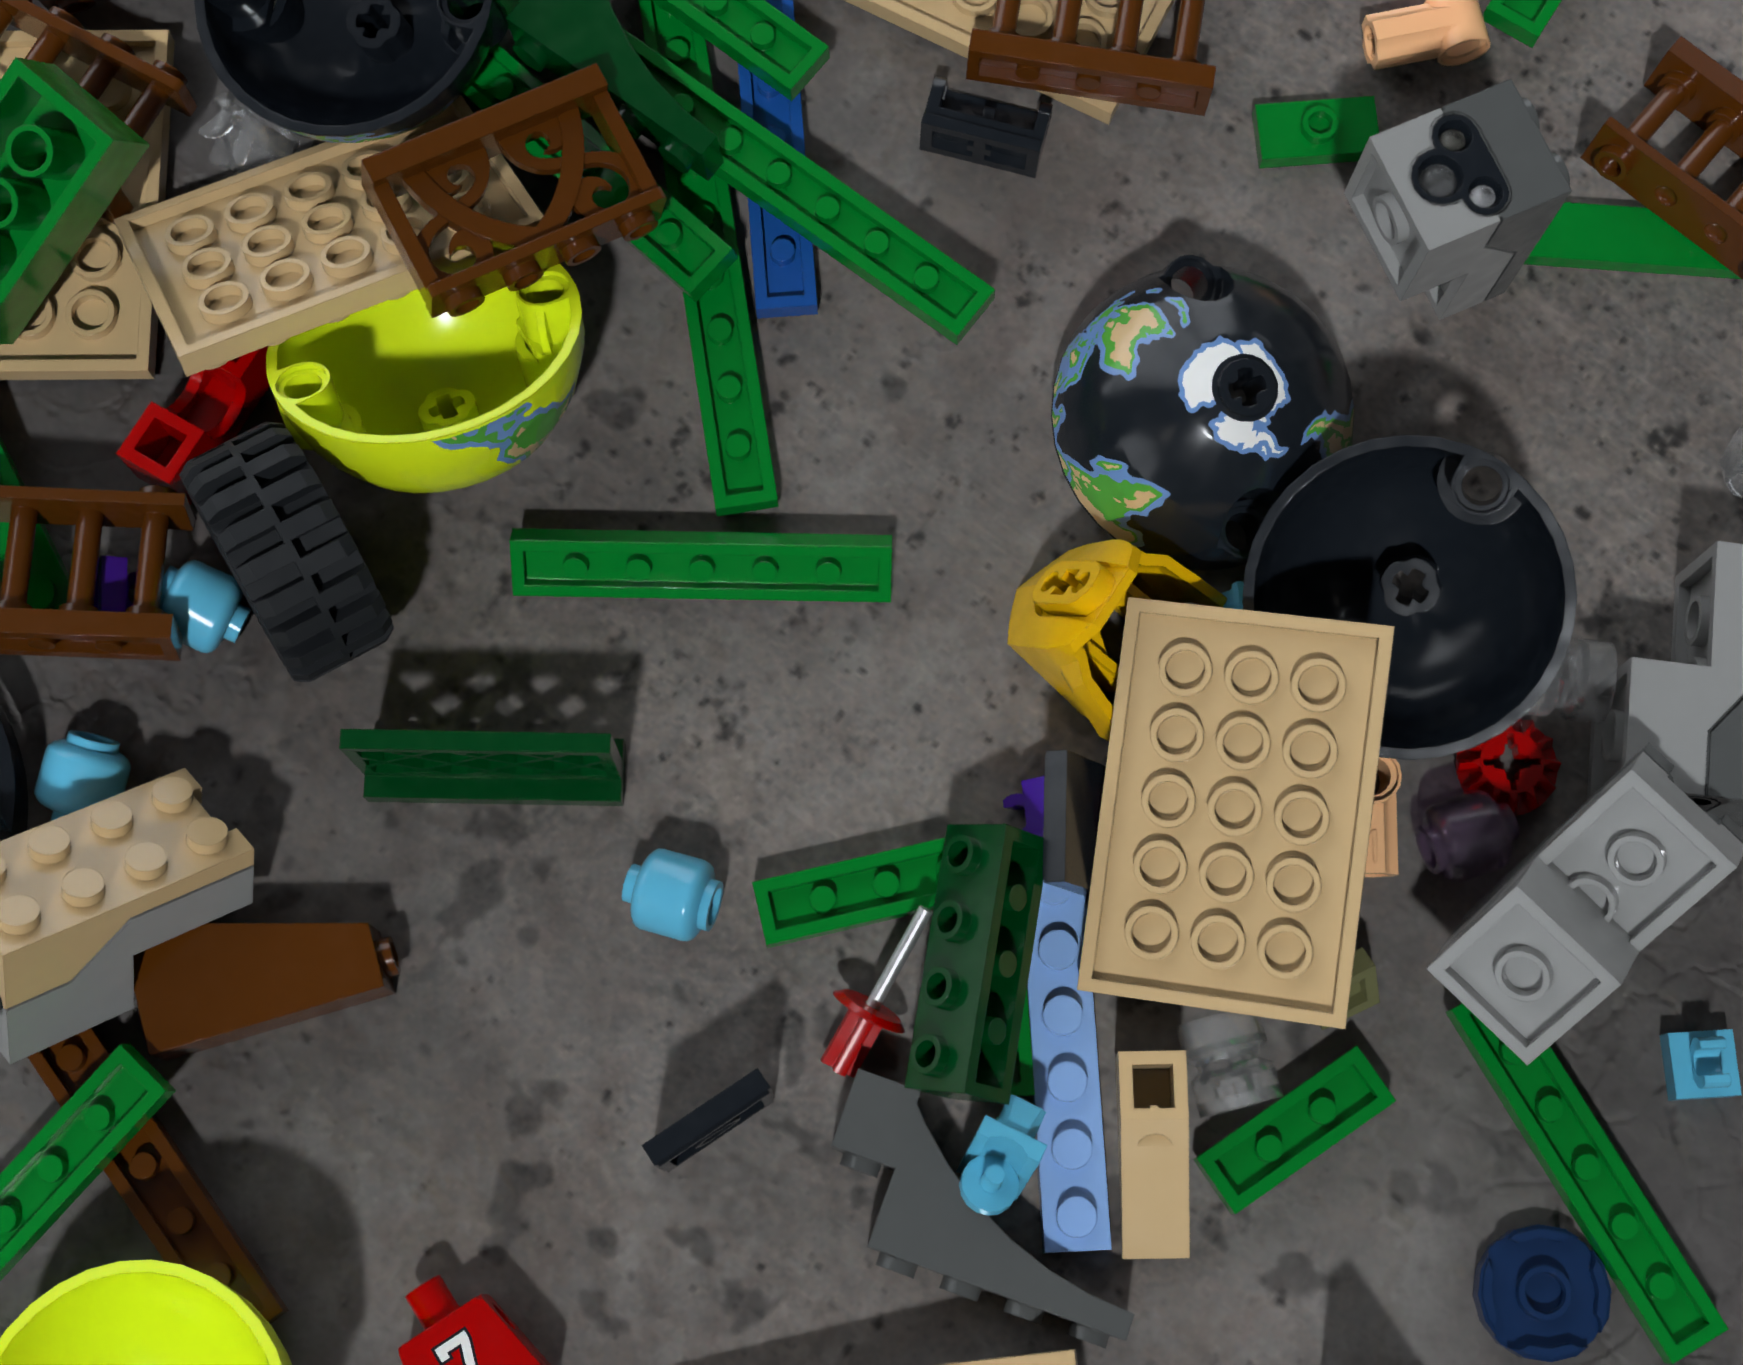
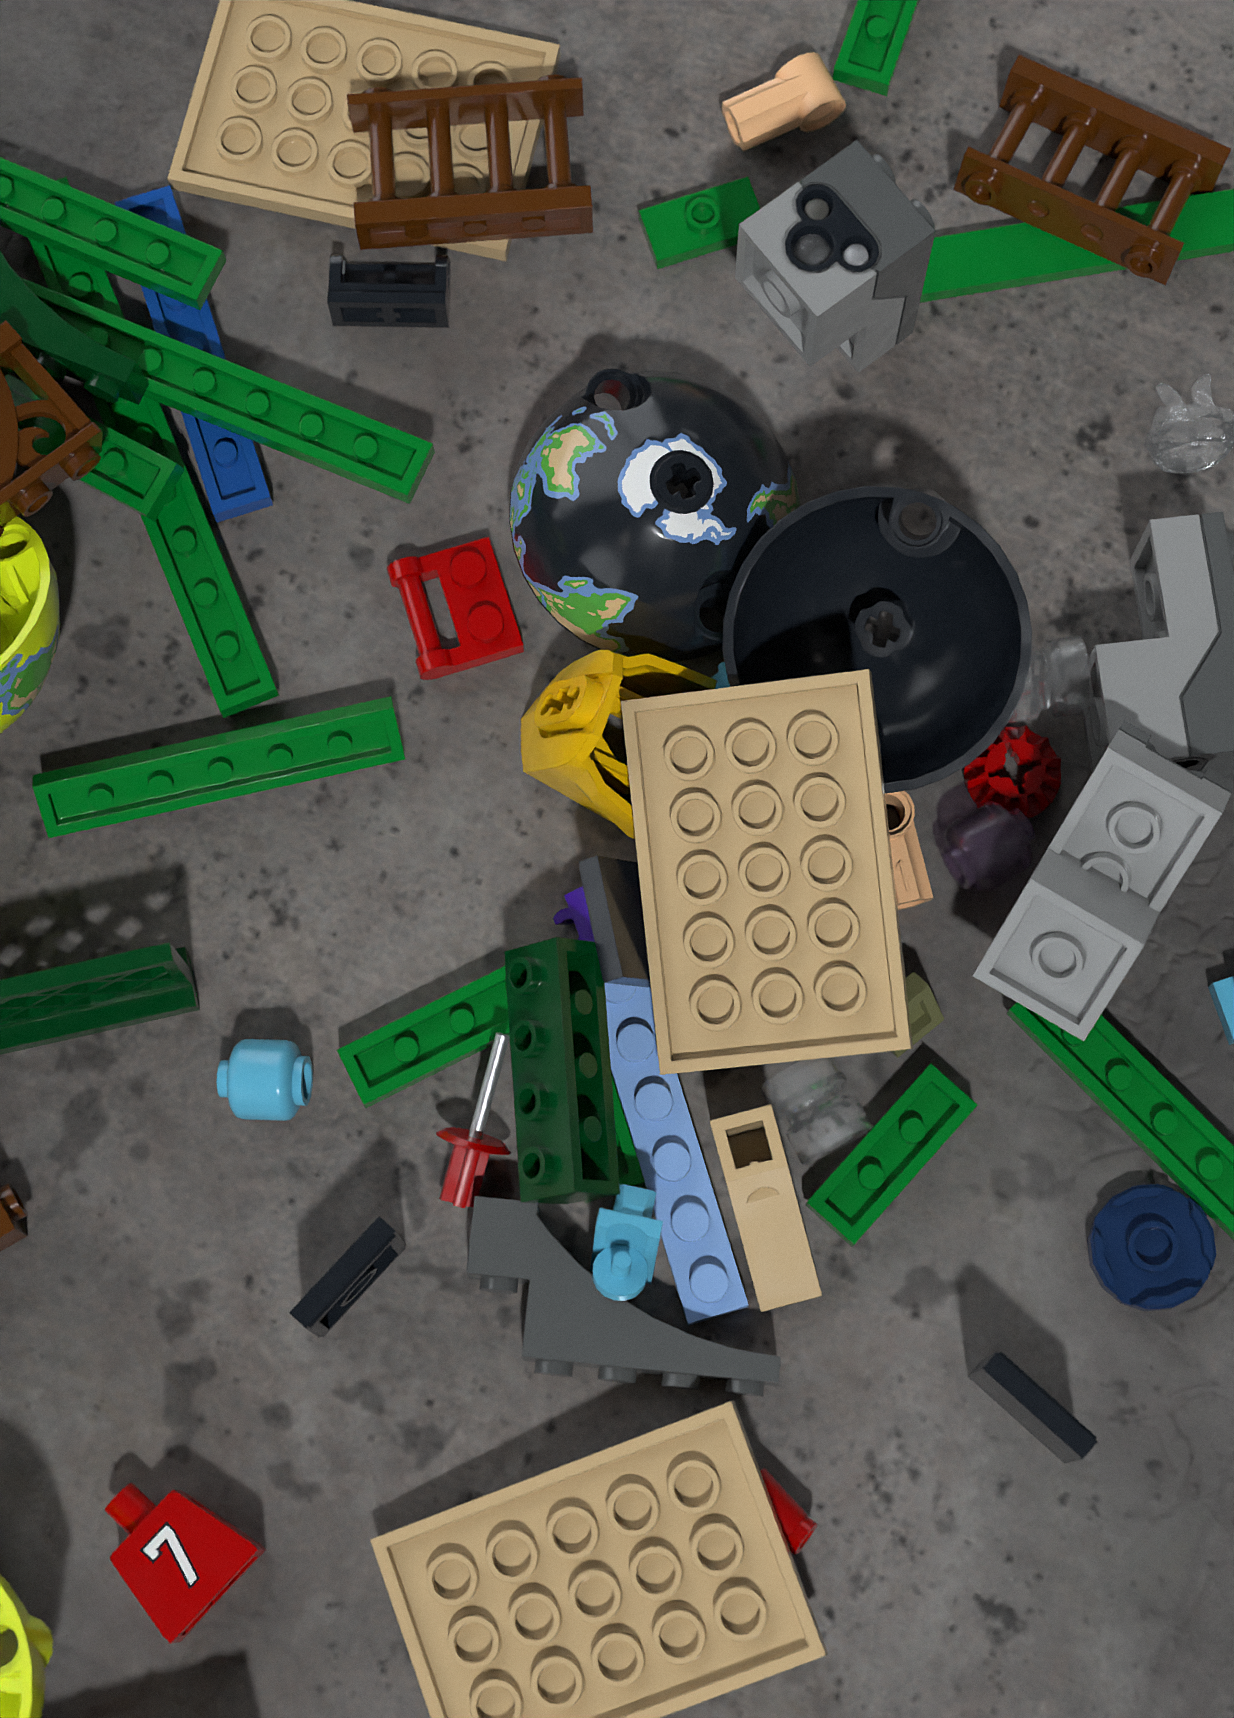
camera: 10 degrees left, 0 degrees up
(997, 457) = (475, 603): none -> red plate

